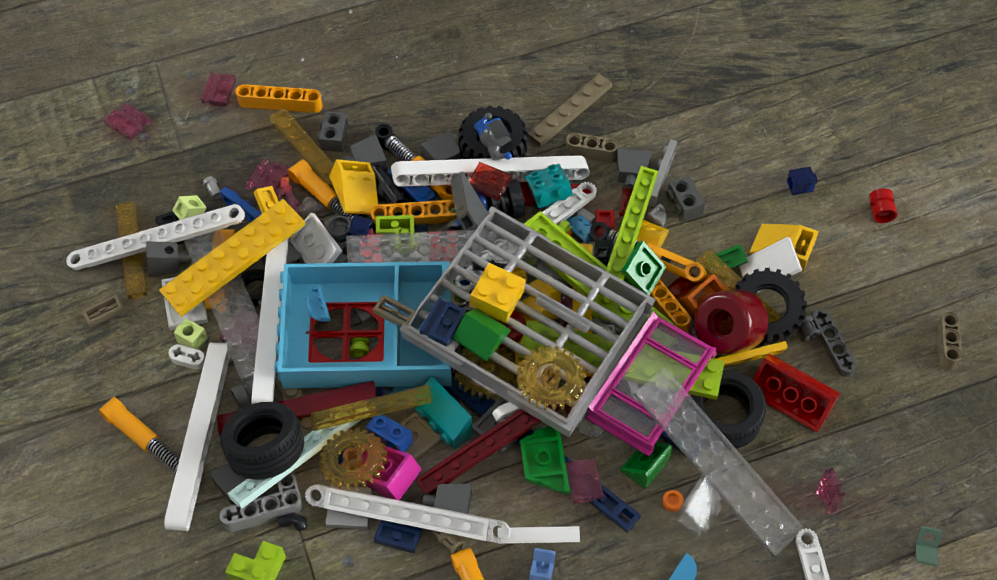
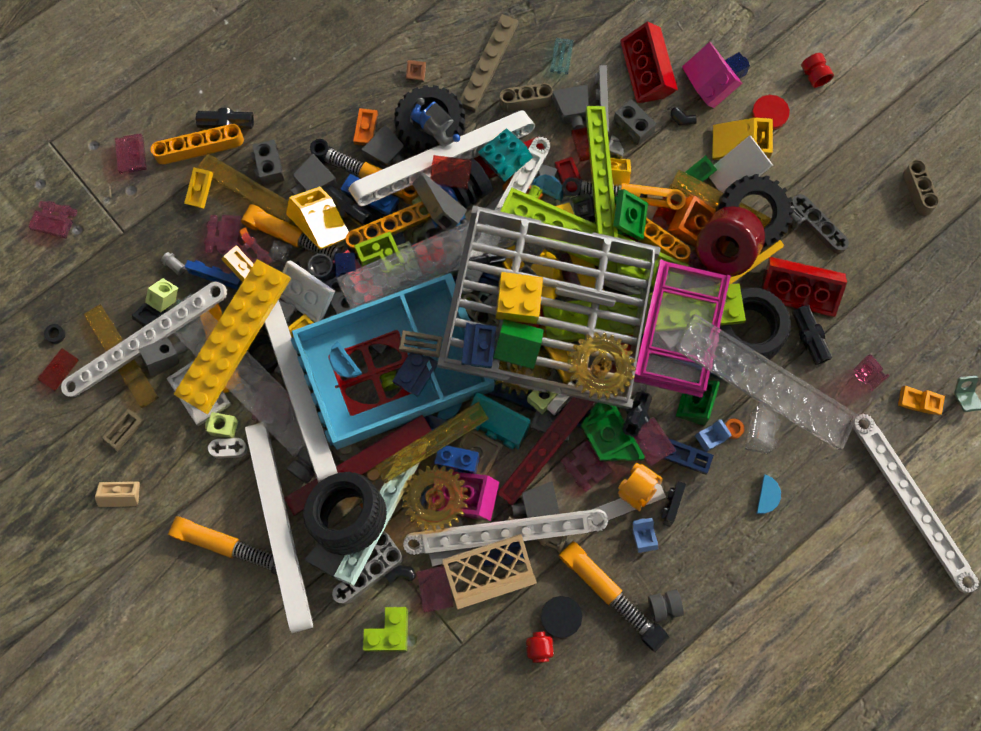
camera: 20 degrees left, 15 degrees up
(72, 363) = (117, 494): none -> tan slope
(74, 241) = (58, 369): none -> clear red plate
(83, 207) = (59, 338): none -> black piece
(263, 133) = (198, 187): none -> yellow plate
(319, 546) = (435, 589): none -> clear pink plate
(326, 90) = (224, 117): none -> black piece
(370, 562) = (498, 586): none -> tan fence
(379, 337) = (415, 373): none -> dark blue plate
(434, 127) = (365, 126): none -> orange plate
(486, 405) = (539, 403): none -> yellowish green brick
(500, 96) = (416, 70): none -> nougat tile
(519, 489) = (589, 461): none -> clear pink plate
(554, 518) = (639, 487): none -> light orange brick
(578, 449) = (637, 414): none -> black piece
(582, 547) = (675, 495): none -> black plate
(636, 133) = (559, 68): none -> clear light blue tile
(648, 499) = (713, 435): none -> medium blue bracket
(720, 153) = (648, 63): none -> red slope
(733, 210) = (681, 119): none -> black arm
(775, 180) = (711, 75): none -> dark pink slope
(786, 439) = (812, 335): none -> black piece
(829, 229) = (772, 108): none -> red tile
(878, 540) = (921, 401): none -> light orange slope

